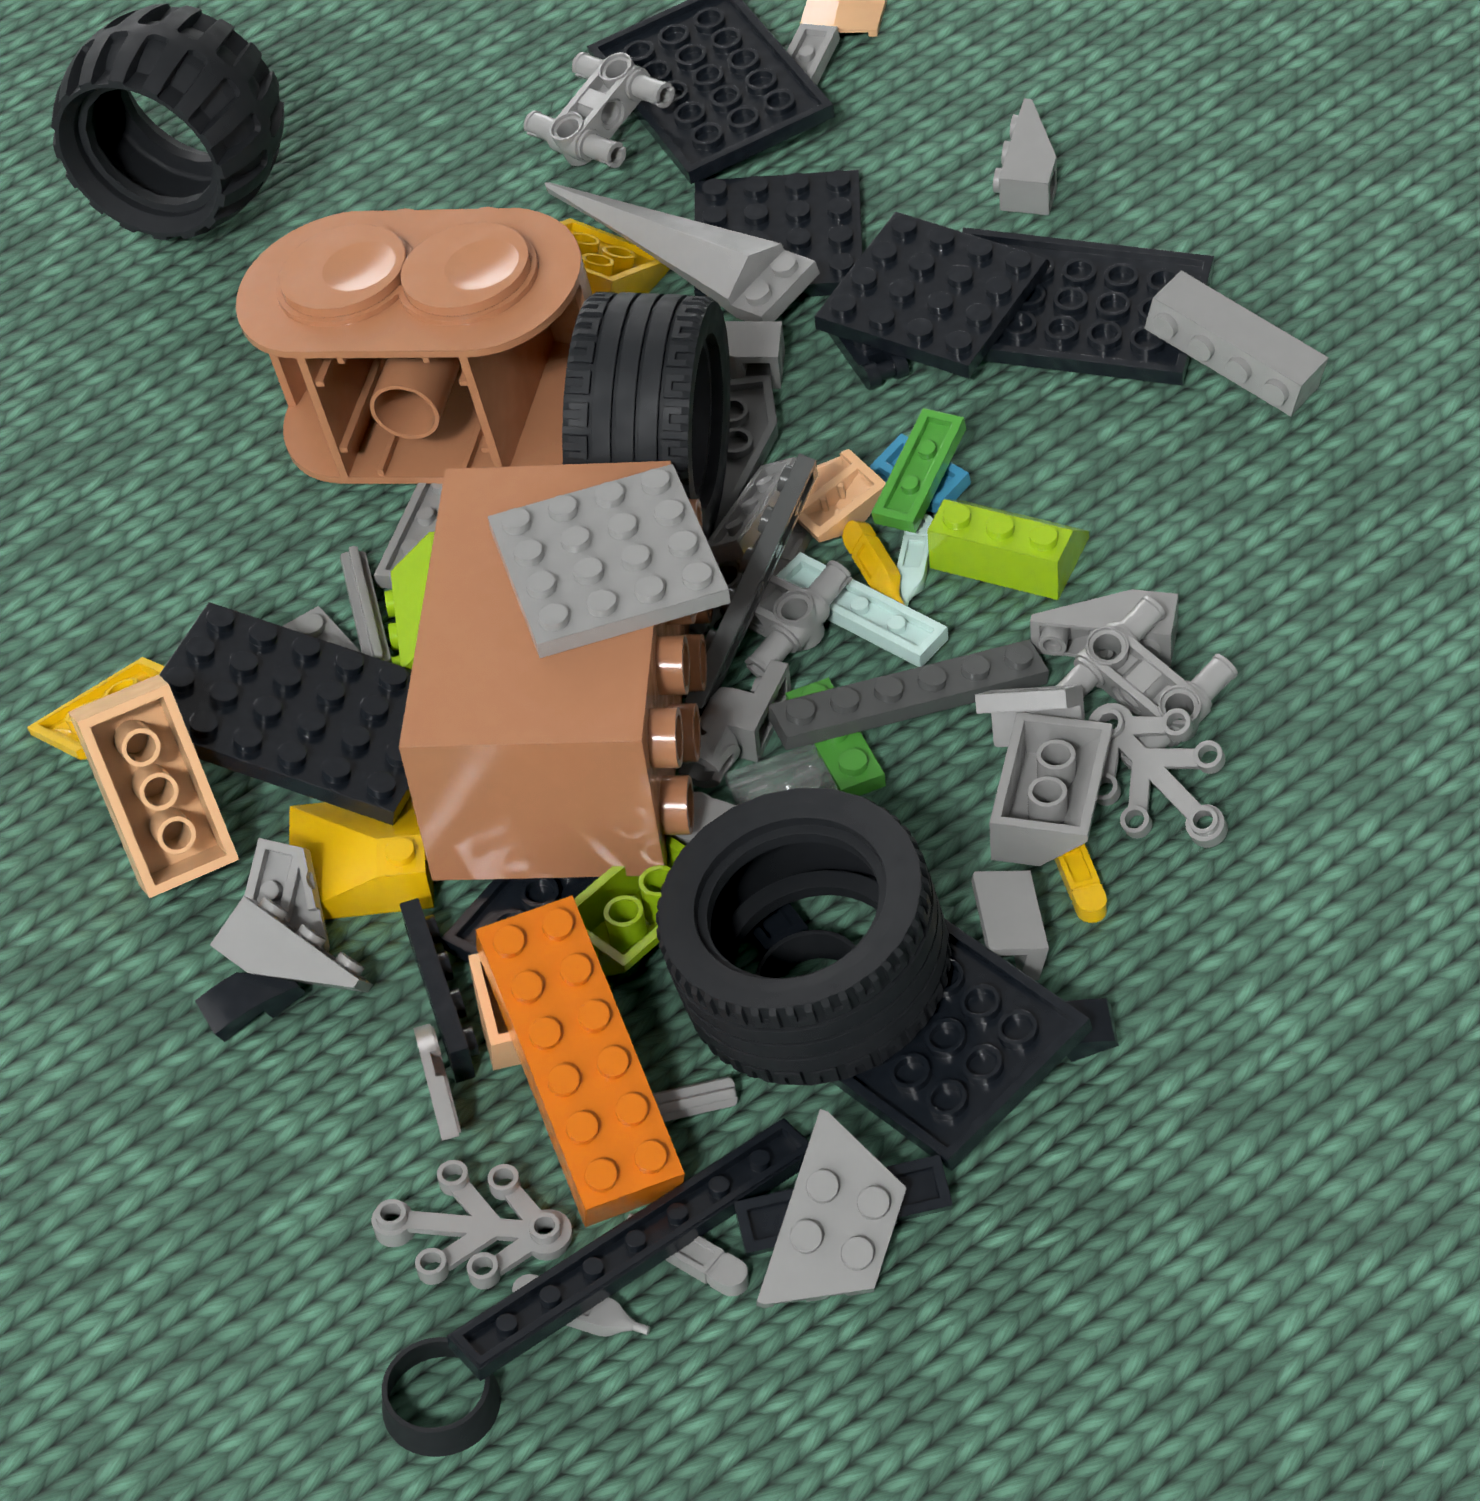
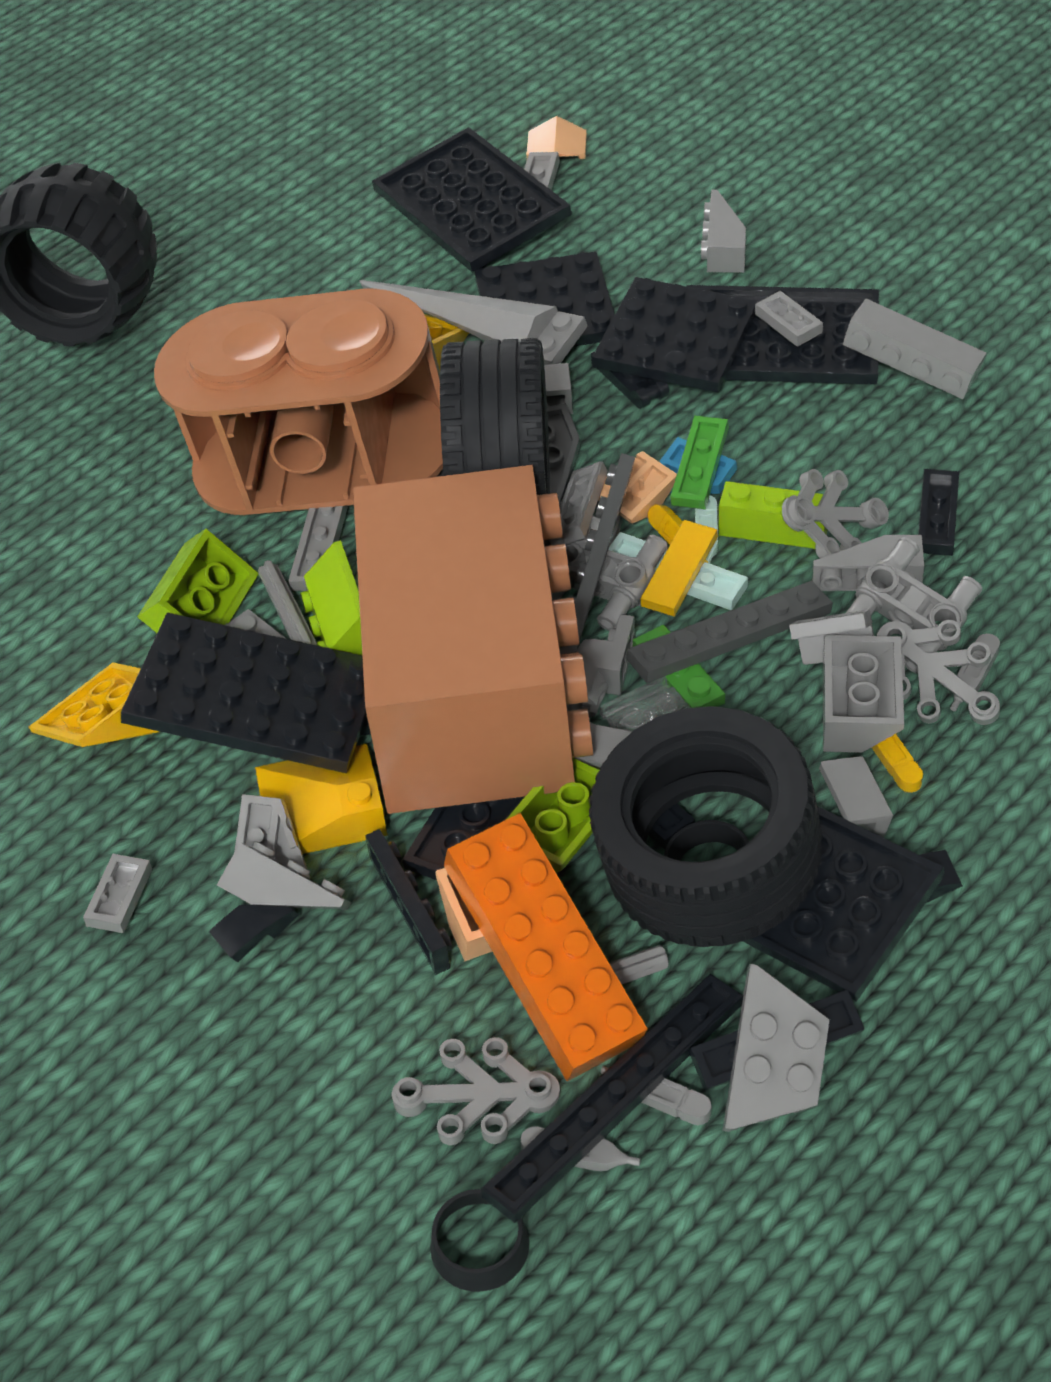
camera: 10 degrees left, 0 degrees up
(96, 942) = (117, 893): none -> light grey piece
(153, 785) = (150, 761): light nougat brick -> none
(266, 569) = (201, 583): none -> lime slope
(437, 1081) = (424, 977): light grey tile -> none
(599, 109) = (392, 223): light grey piece -> none
(608, 560) = (502, 545): light grey plate -> none
(861, 606) = (679, 568): none -> yellow tile
(1021, 553) = (801, 513): none -> light grey plant
(1081, 286) = (789, 318): none -> light grey piece
(1207, 786) = (975, 676): none -> light grey piece
(1215, 565) = (938, 511): none -> black plate

